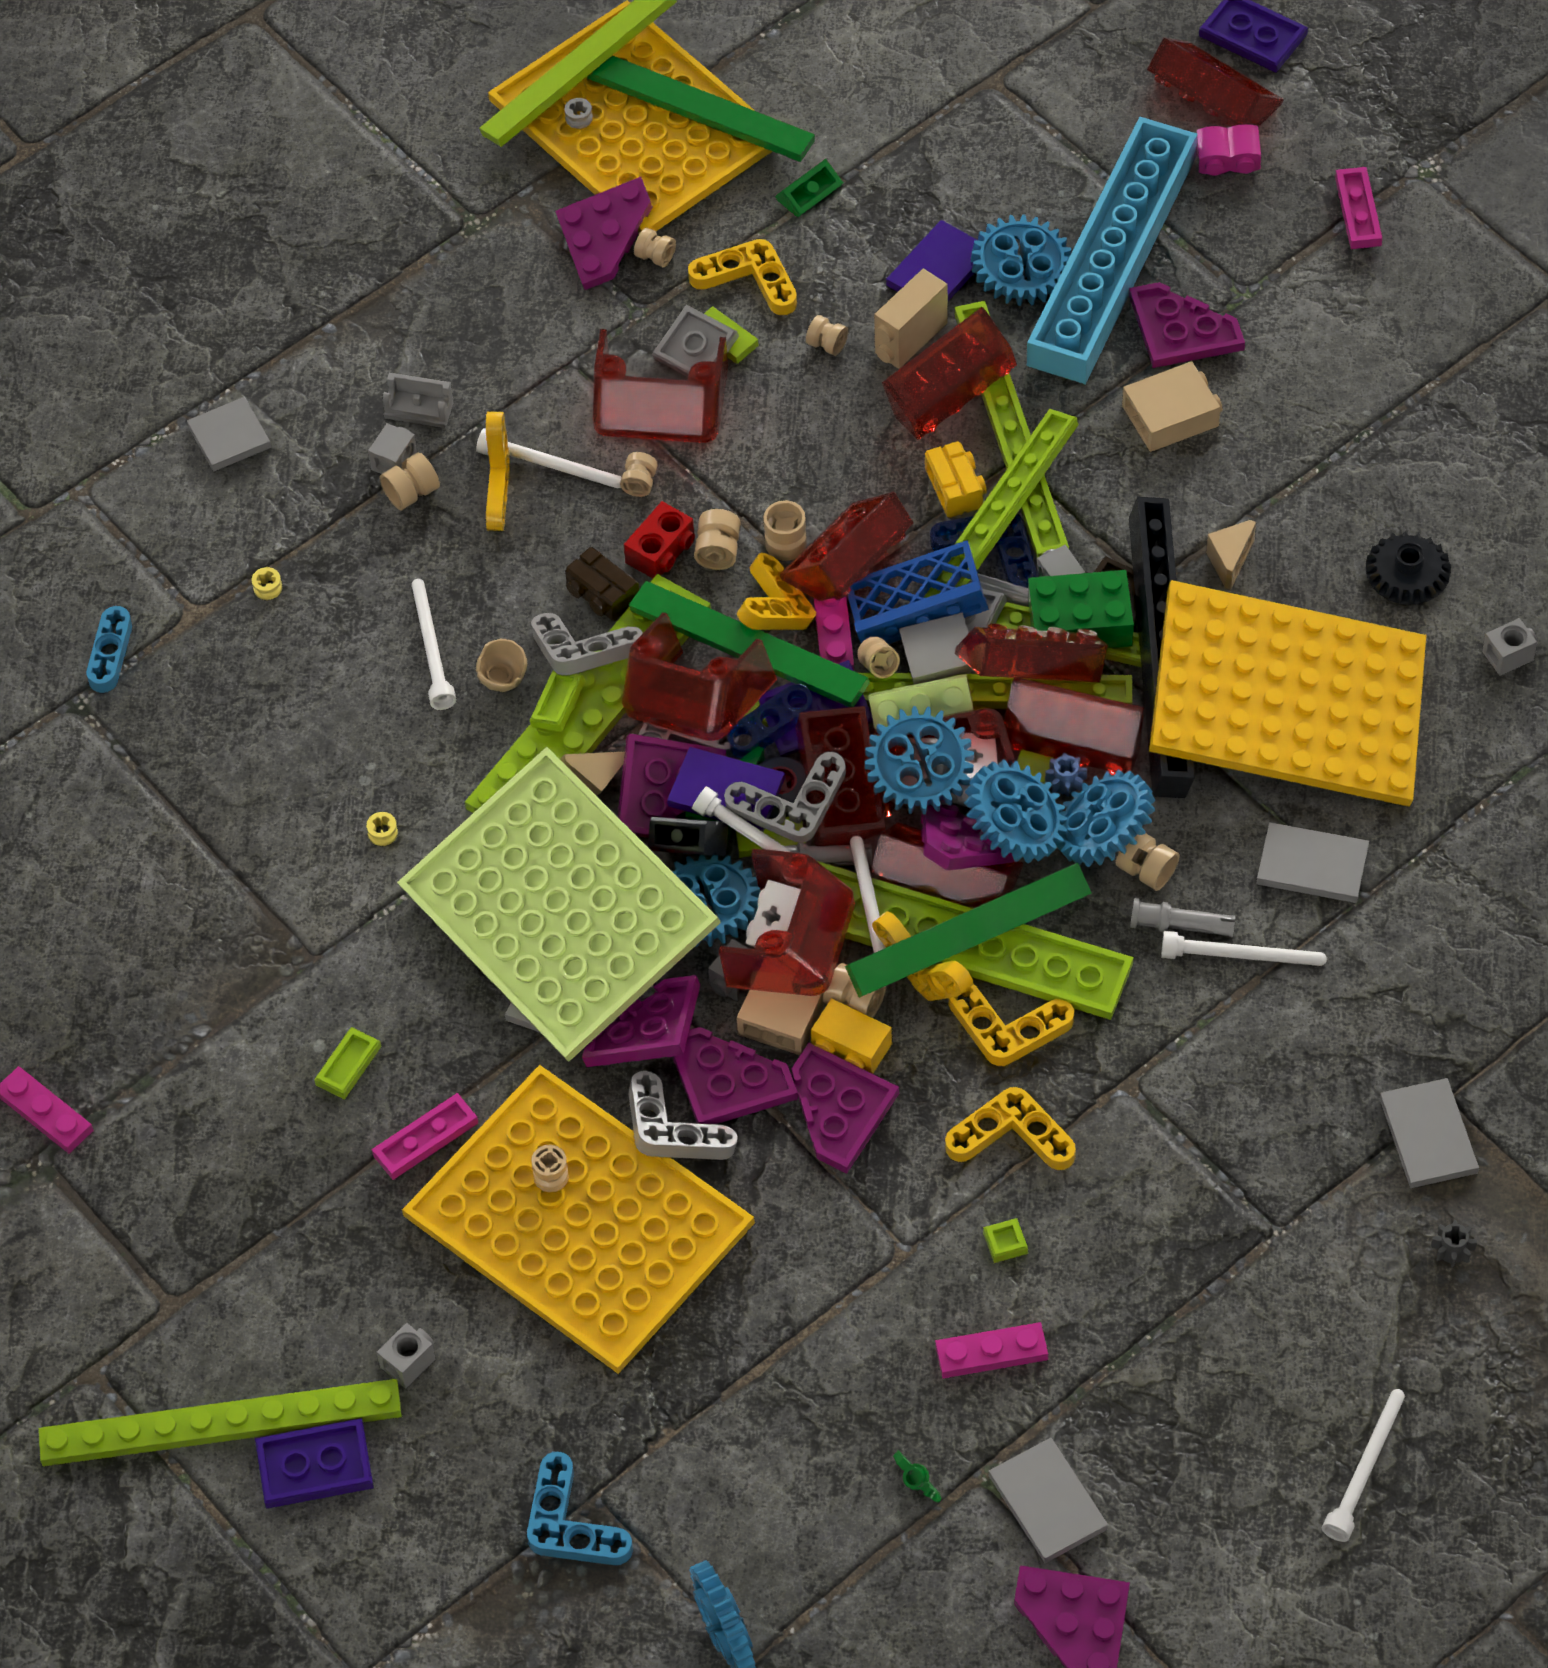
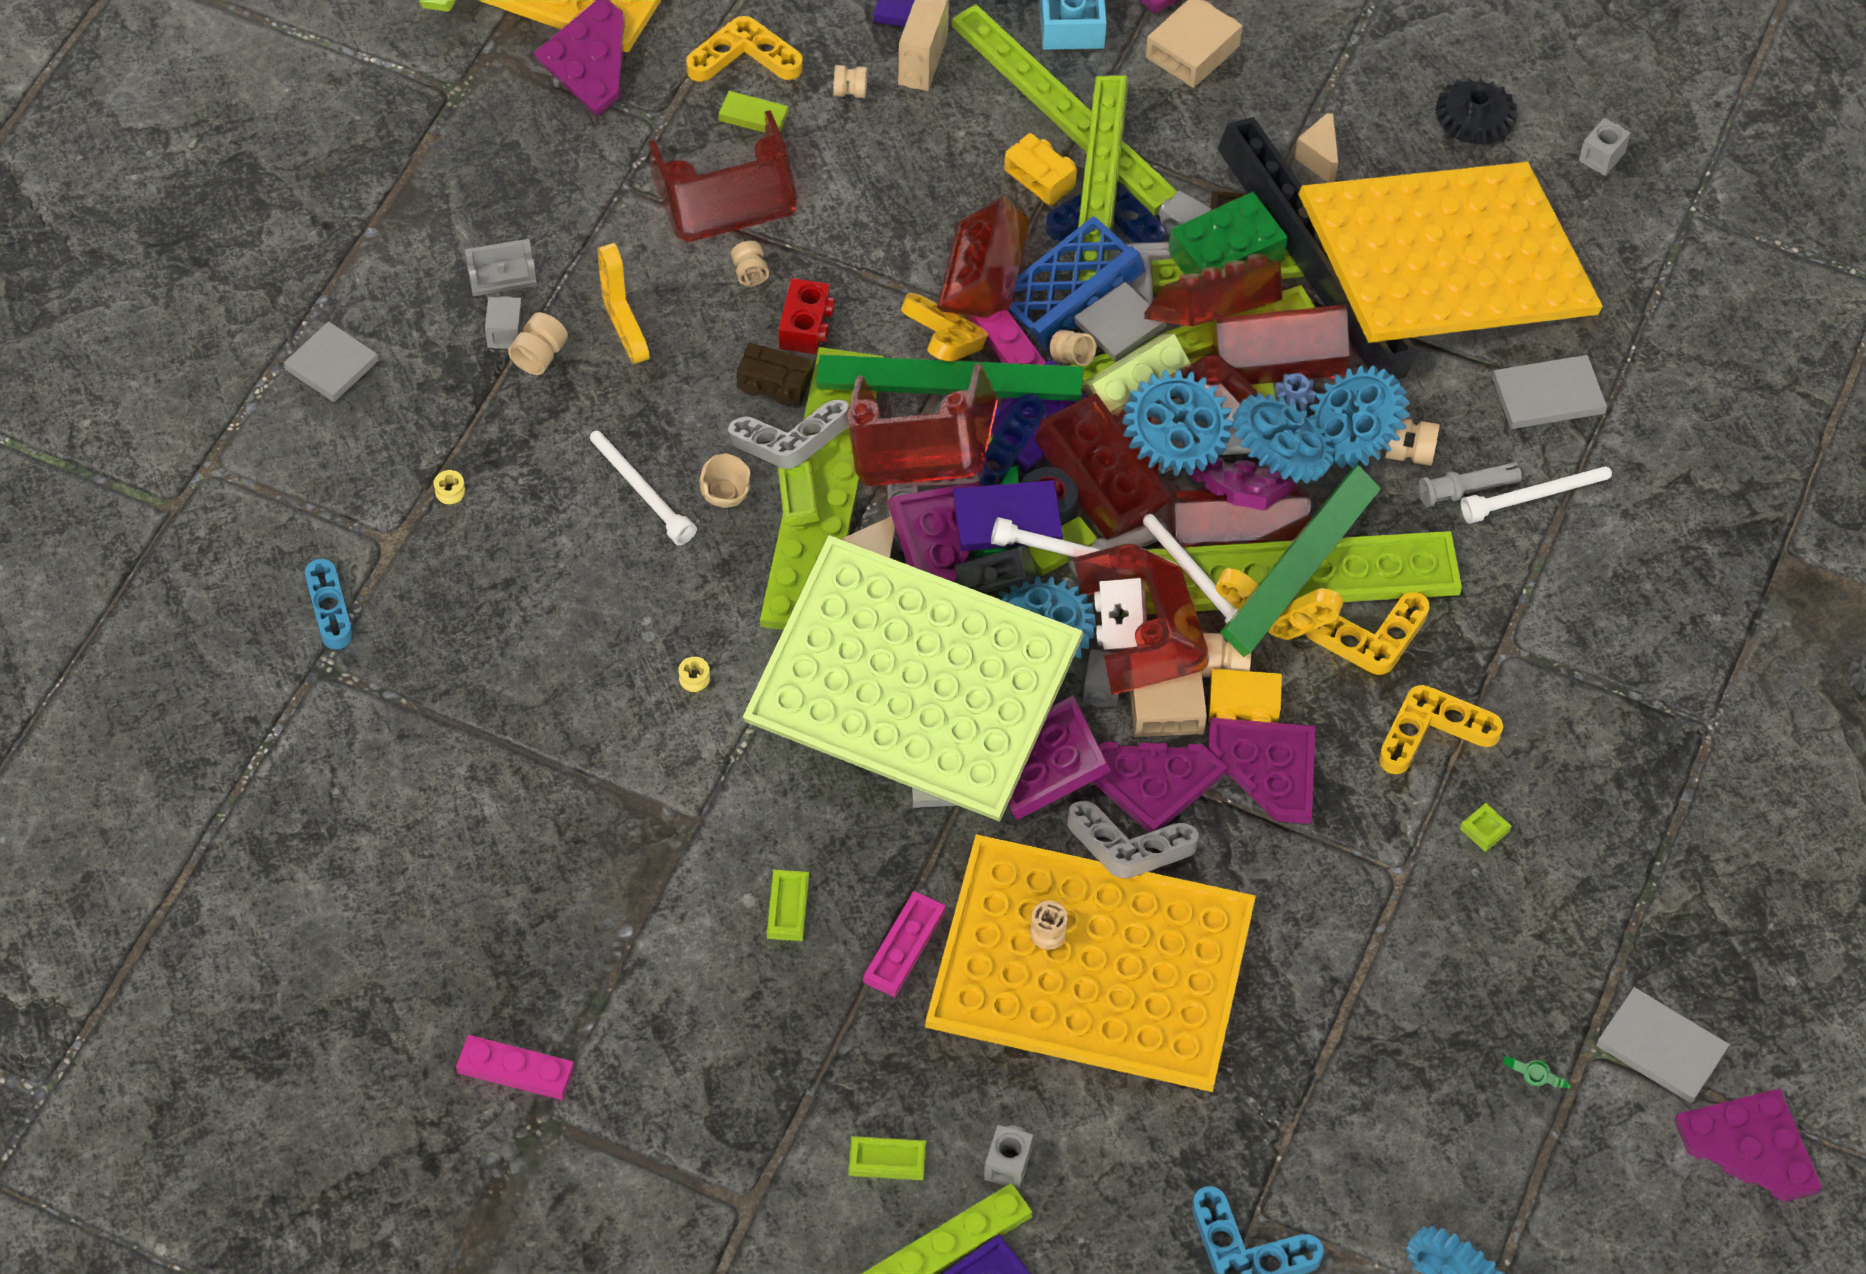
camera: 30 degrees left, 0 degrees up
(307, 1314) = (887, 1158): none -> lime tile
(554, 462) = (591, 280): white piece -> none
(655, 247) = (645, 56): tan wheel -> none
(692, 340) = (731, 129): light grey tile -> none
(717, 539) = (859, 295): tan wheel -> none
(785, 530) = (917, 265): tan wheel -> none
(799, 809) = (1092, 505): light grey beam -> none
(949, 374) = (991, 76): clear red slope -> none
(991, 1350) = (1532, 931): dark pink plate -> none
(1429, 1133) = (1787, 588): light grey tile -> none

